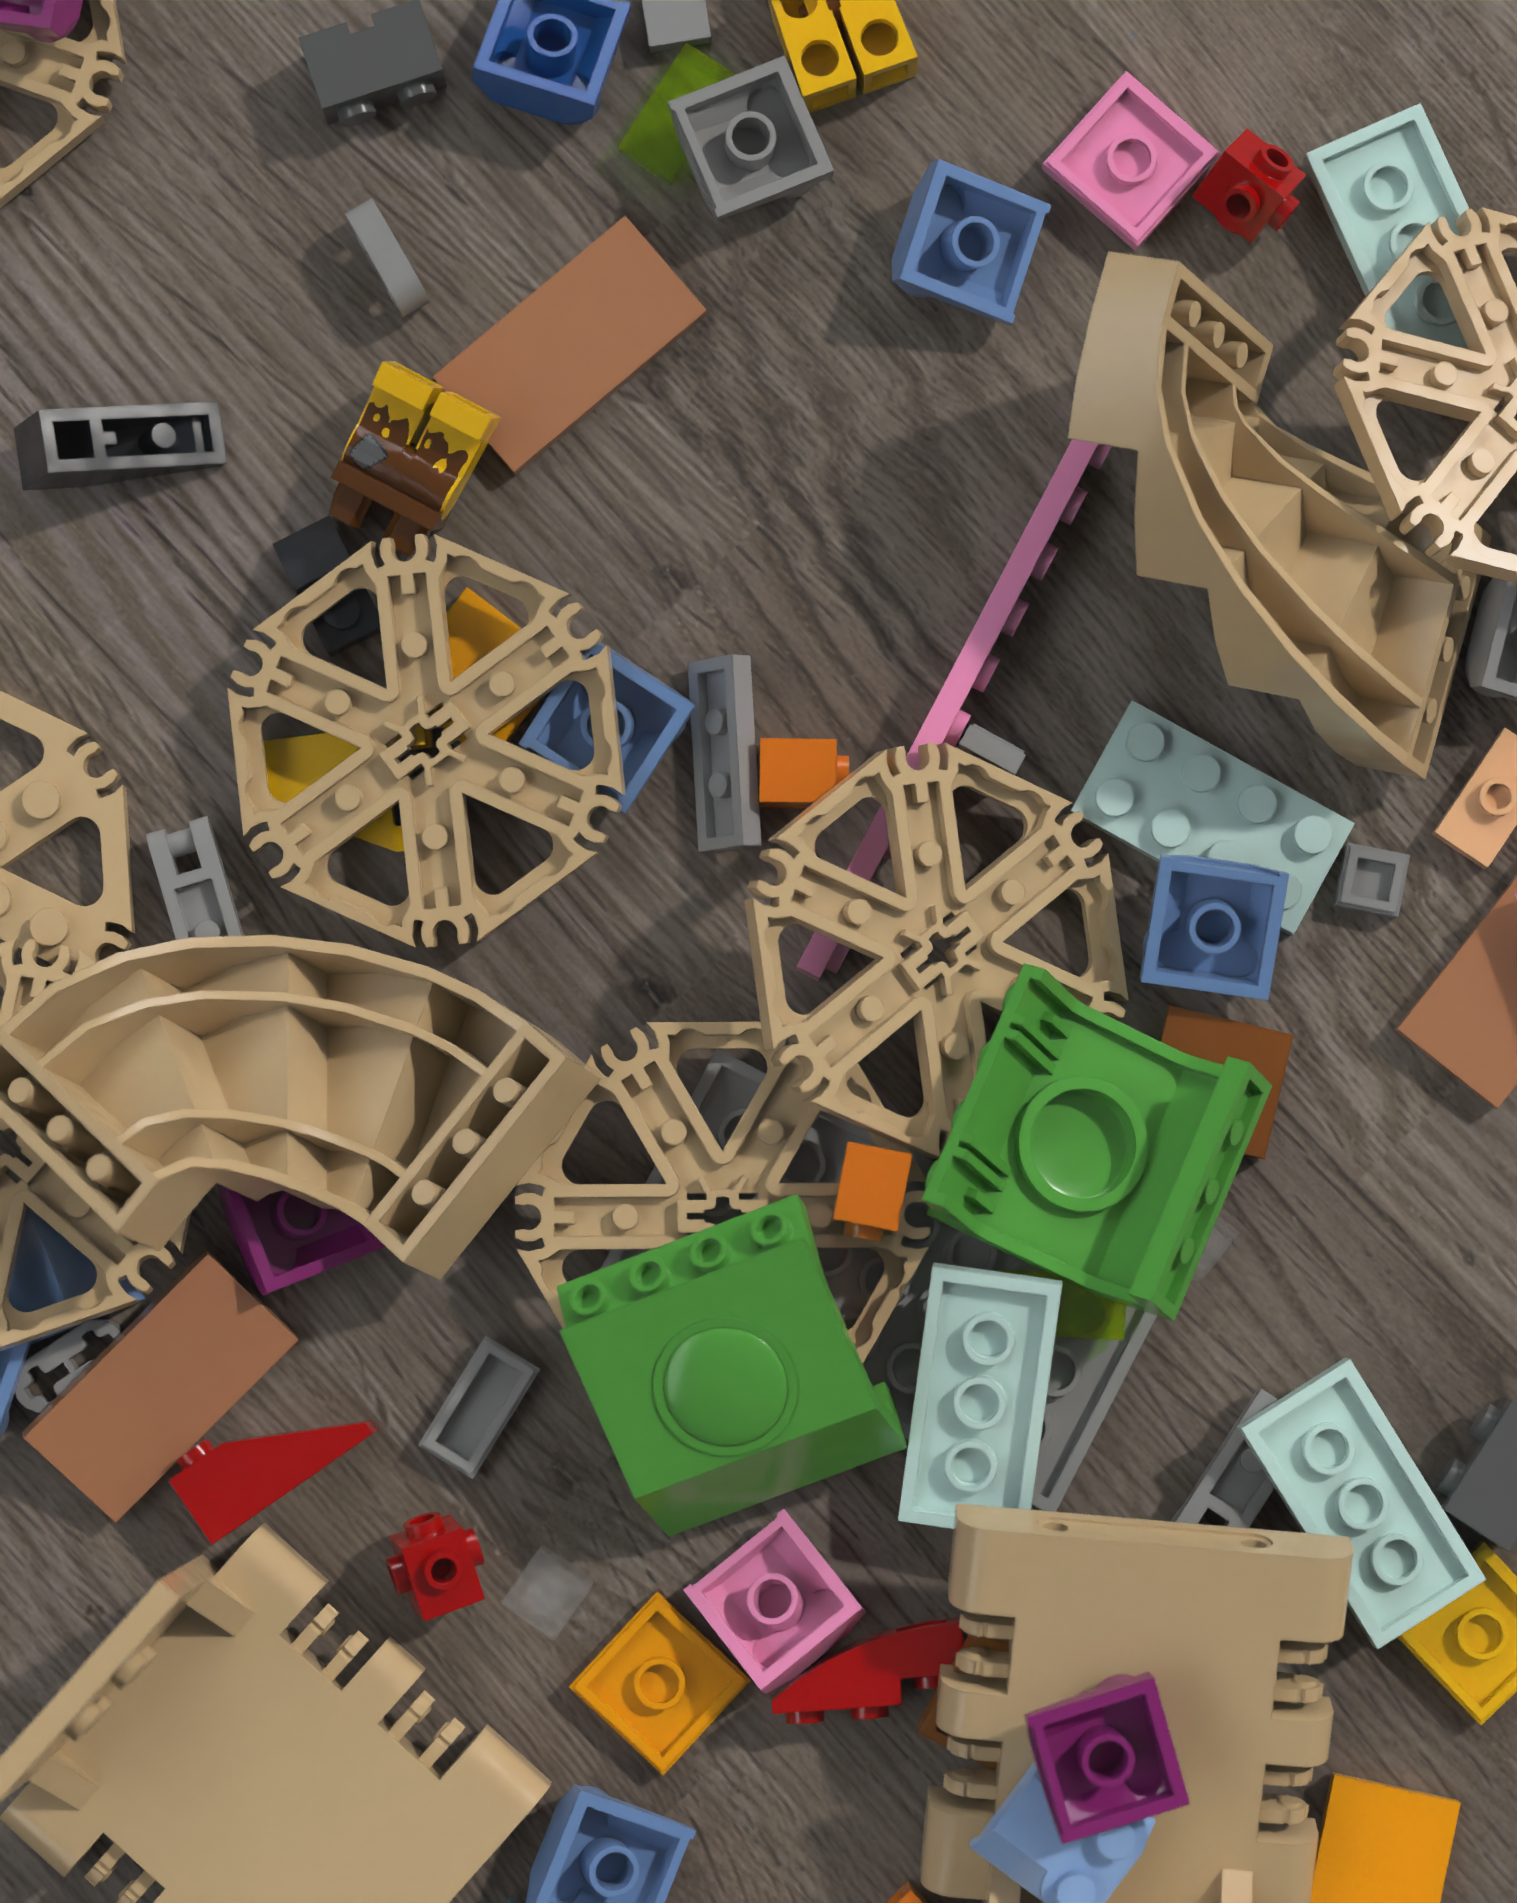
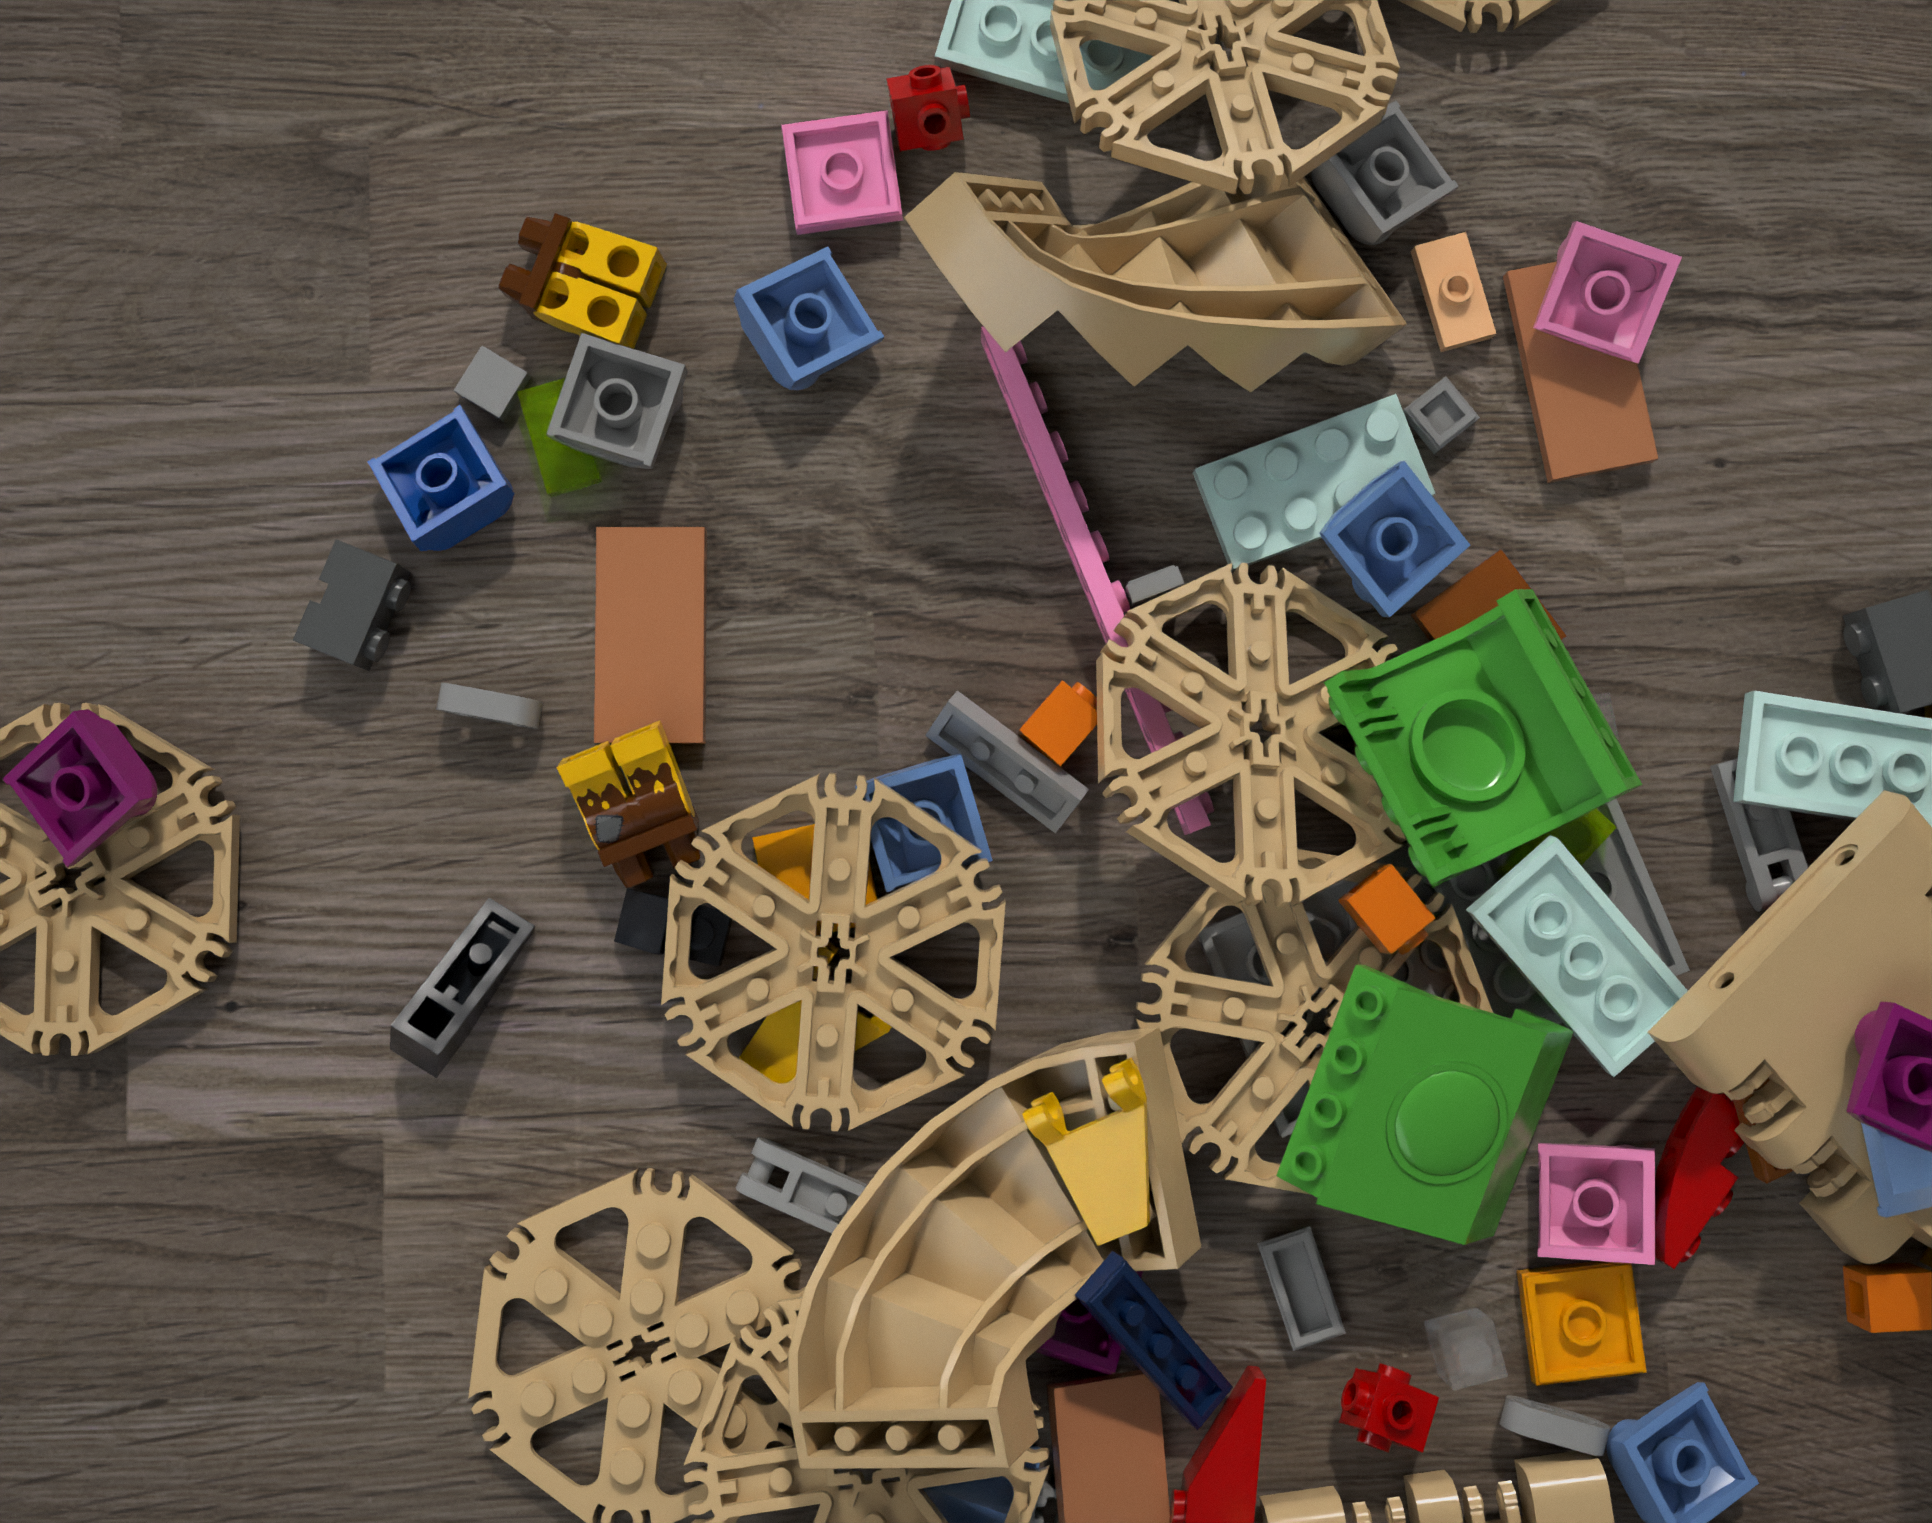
camera: 45 degrees left, 0 degrees up
(323, 1303) = (1154, 1340): none -> dark blue tile
(444, 1118) = (1104, 1159): none -> yellow flag
(546, 1730) = (1554, 1425): none -> light grey beam

